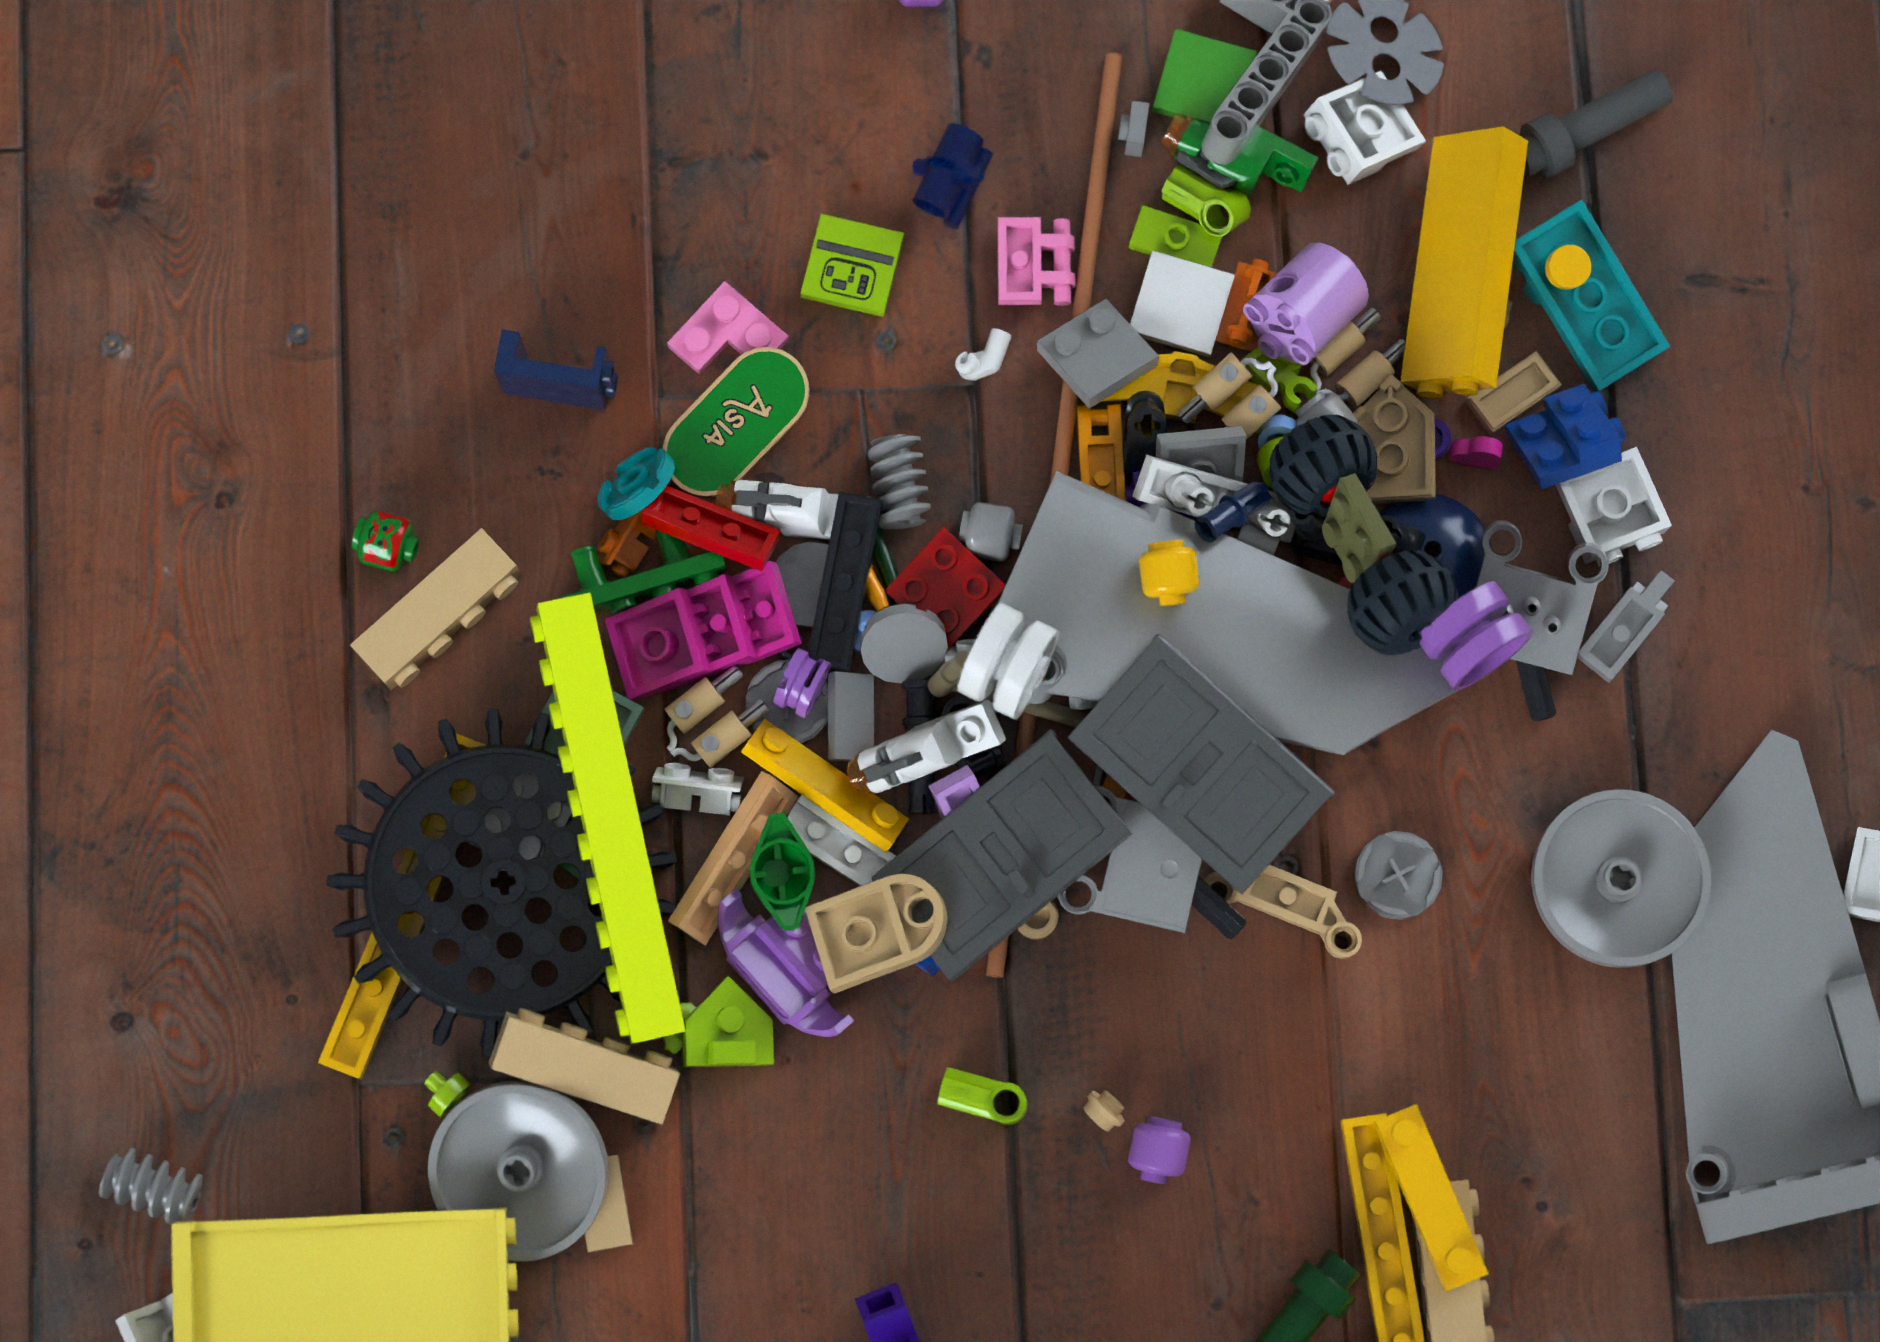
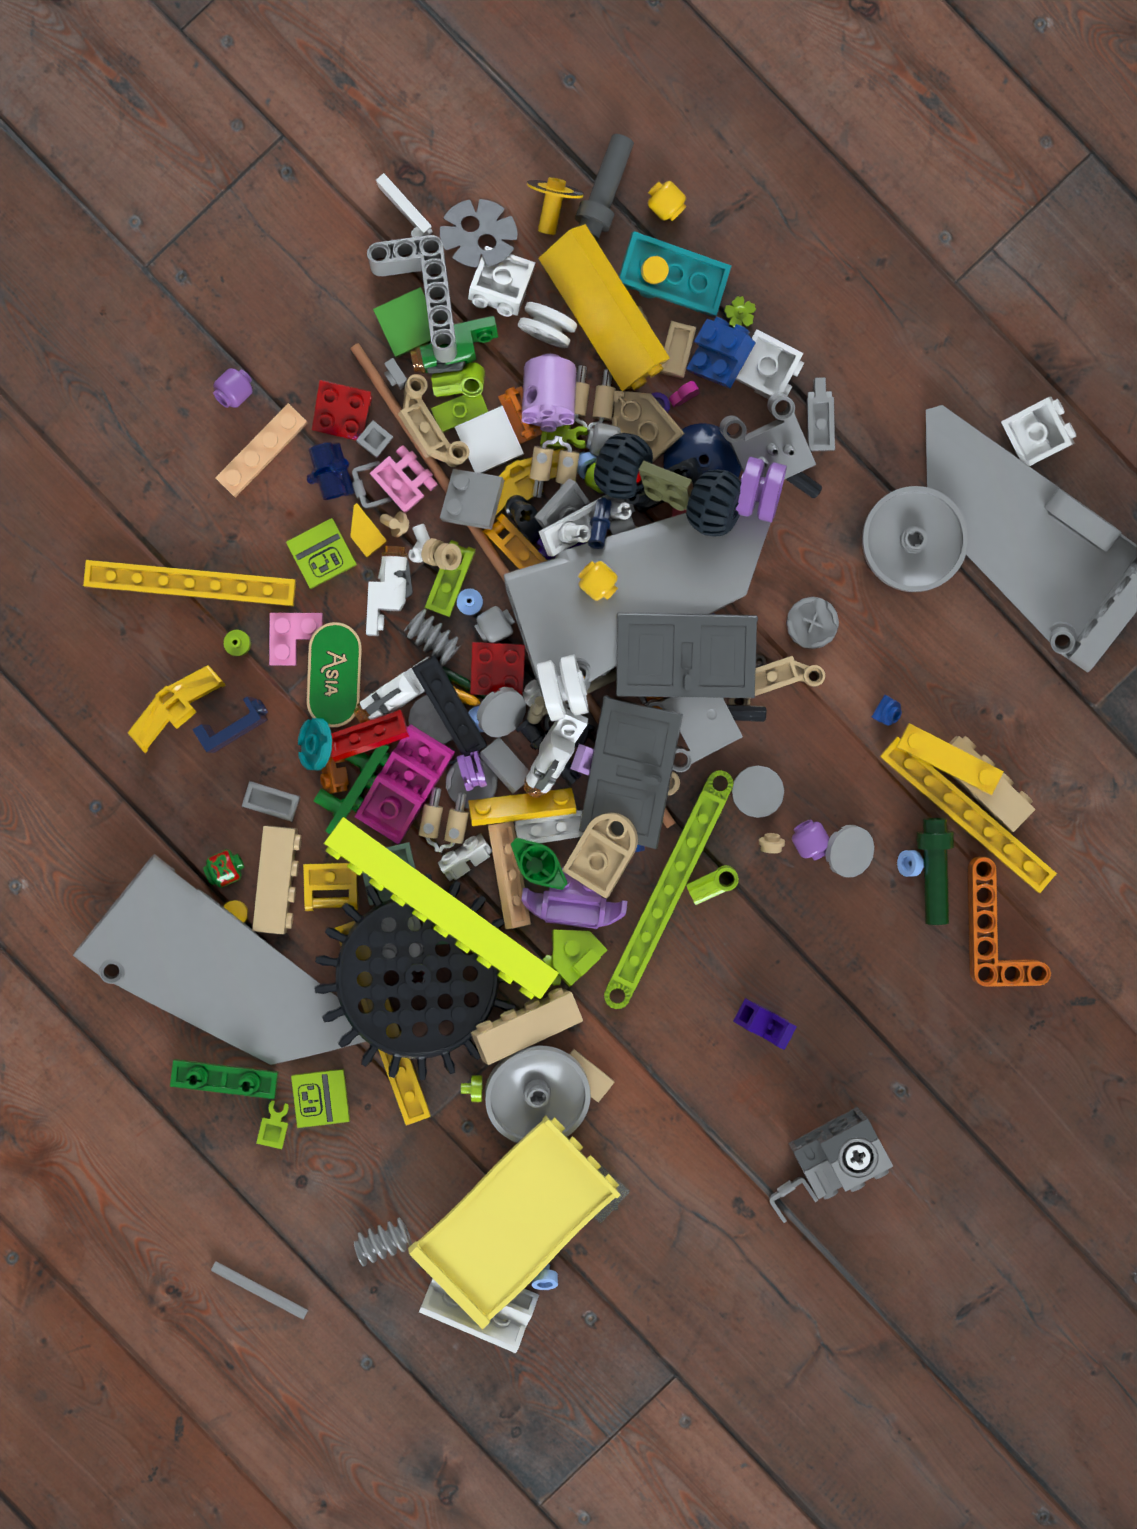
camera: 40 degrees left, 10 degrees up
(146, 803) = (224, 1079): none -> green plate
(147, 922) = (272, 1130): none -> lime plate
(243, 934) = (320, 1098): none -> lime tile
(254, 652) = (210, 969): none -> light grey panel
(348, 609) = (238, 909): none -> yellow tile
(503, 665) = (329, 877): none -> yellow plate
(505, 291) = (173, 705): none -> yellow plate
(518, 511) = (270, 801): none -> light grey tile
(652, 293) = (241, 647): none -> lime tile
(660, 164) = (189, 583): none -> yellow plate
(889, 82) = (261, 450): none -> light nougat plate
(896, 381) = (392, 589): none -> white plate
(919, 1054) = (668, 889): none -> lime plate
(928, 286) = (365, 532): none -> yellow tile
(968, 228) = (359, 487): none -> light grey piece
(979, 309) = (398, 524): none -> tan plate
(982, 488) = (469, 608): none -> light blue tile
(983, 429) = (449, 583): none -> lime plate
(992, 378) = (428, 551): none -> tan tile
(1006, 395) = (448, 556): none -> tan tile
(1030, 116) = (341, 410): none -> red hinge
(1040, 183) = (374, 439): none -> light grey plate
(1114, 219) = (425, 428): none -> tan plate
(1143, 1029) = (757, 791): none -> light grey tile
(1197, 1207) = (850, 851): none -> light grey tile
(1263, 1293) = (910, 863): none -> light blue tile
(1375, 223) = (547, 324): none -> white wheel
(1400, 1071) = (887, 711): none -> blue plate
(1508, 86) = (554, 192): none -> yellow piece
(1634, 414) = (740, 312): none -> lime plant
(1654, 202) = (666, 200): none -> yellow head

